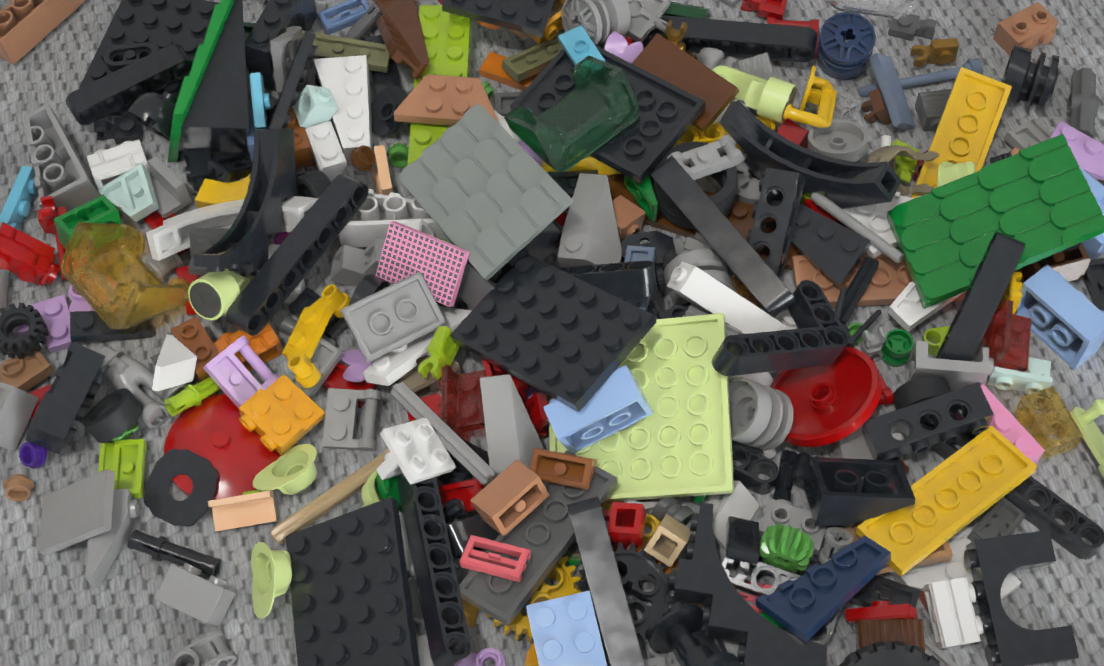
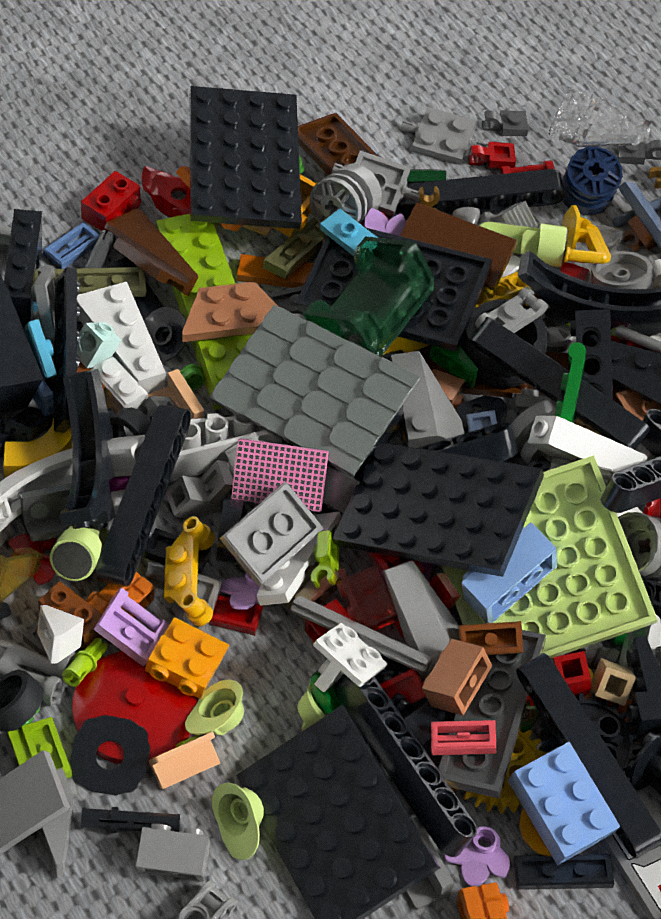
camera: 25 degrees left, 5 degrees down
(326, 501) = (267, 725): tan axle -> none
(342, 415) = (245, 650): light grey plate -> none
(362, 158) = (161, 386): reddish brown plate -> none
(727, 239) = (571, 382): none -> green plate

